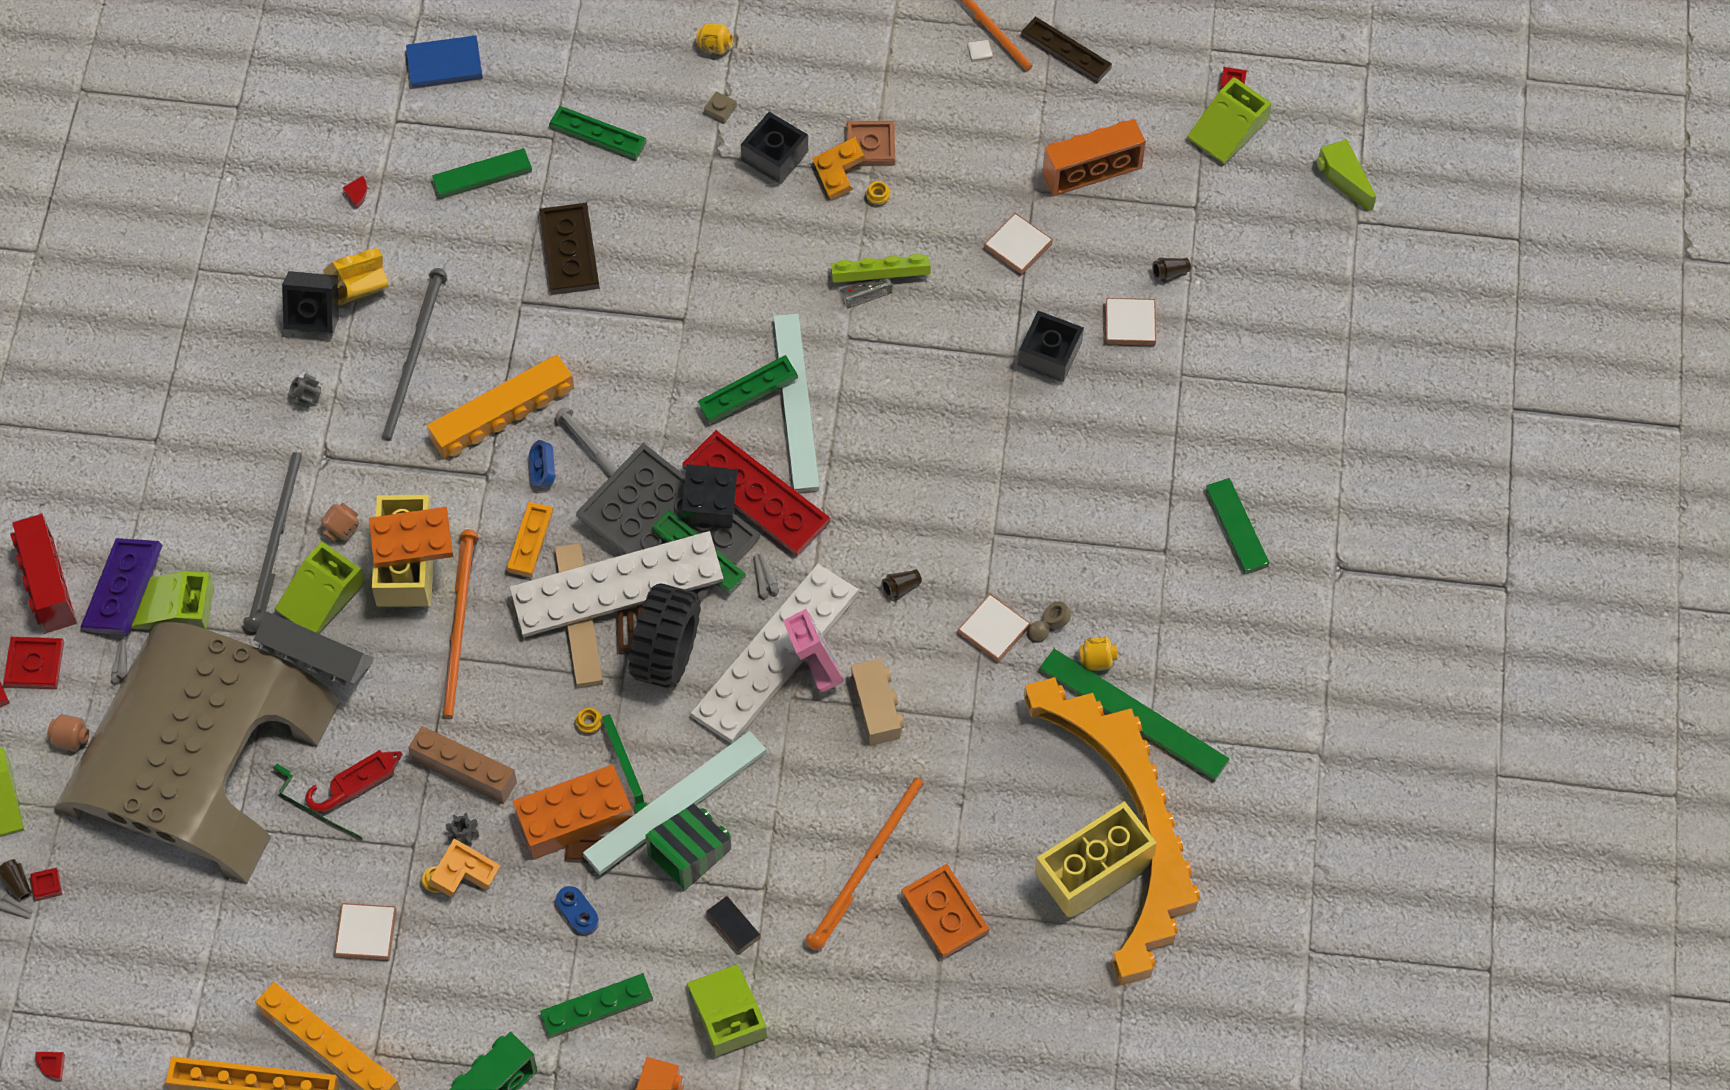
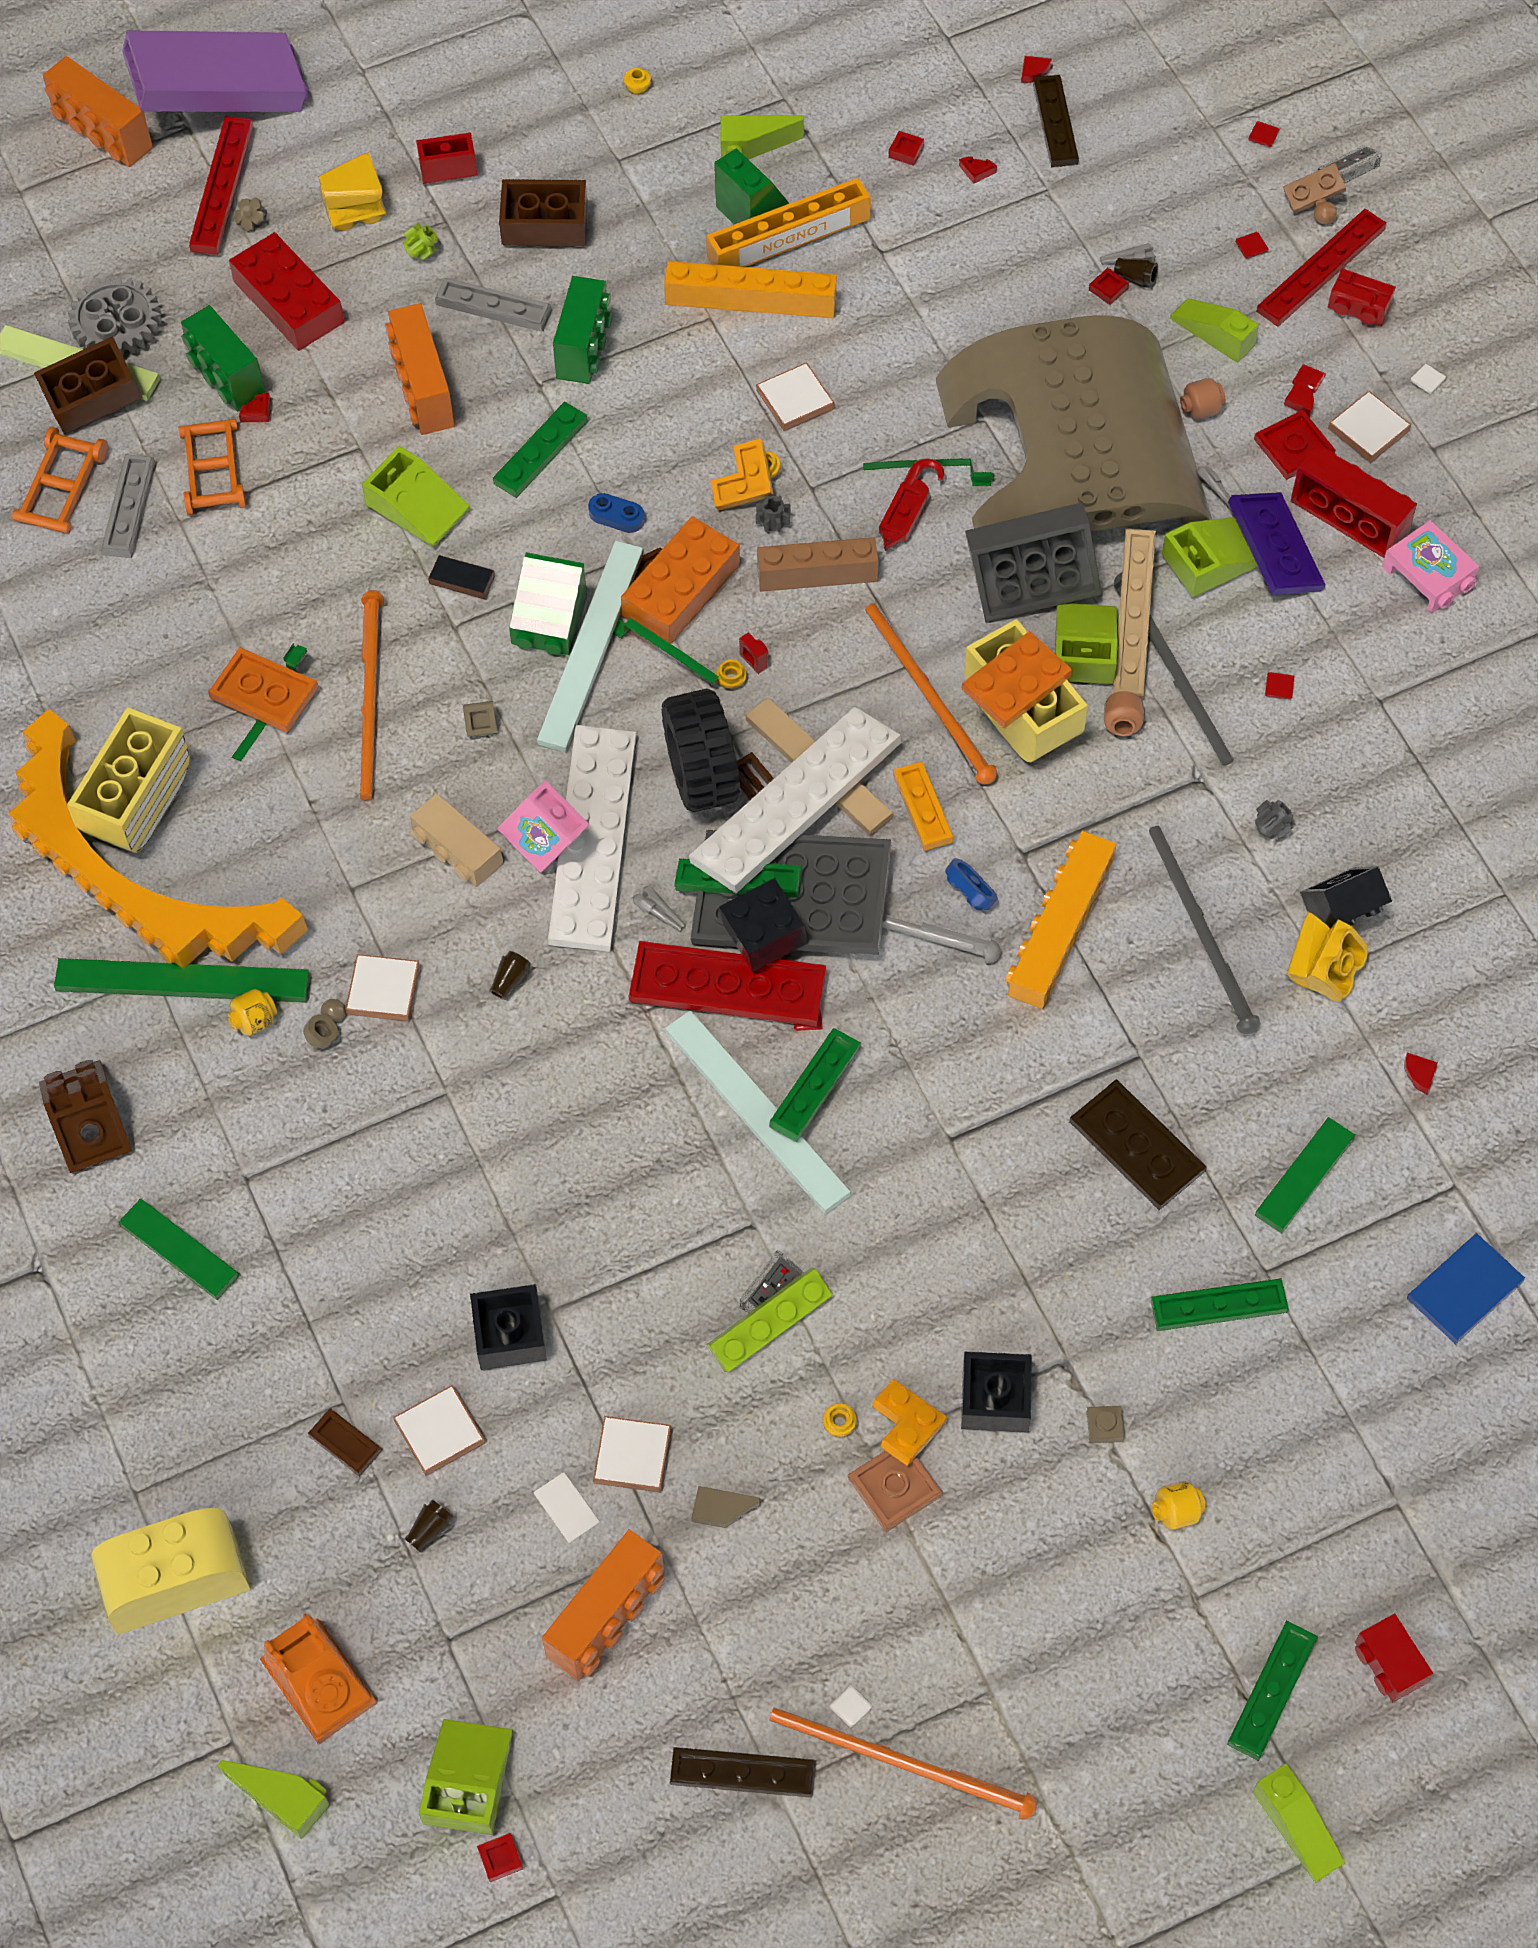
camera: 150 degrees right, 0 degrees up
(31, 495) = (1432, 565): none -> bright pink panel
(213, 488) = (1279, 685): none -> red piece
(264, 590) = (1134, 611): none -> tan tile
(560, 723) = (753, 652): none -> red plate
(797, 788) = (479, 718): none -> dark tan plate
(907, 916) = (292, 659): none -> green piece
(983, 185) = (721, 1507): none -> dark tan tile
(1077, 240) = (566, 1507): none -> white sticker
(1194, 347) = (344, 1442): none -> reddish brown tile
(1258, 638) = (78, 1100): none -> reddish brown bracket
(1288, 223) = (316, 1678): none -> orange piece
(1350, 313) = (168, 1568): none -> light yellow brick

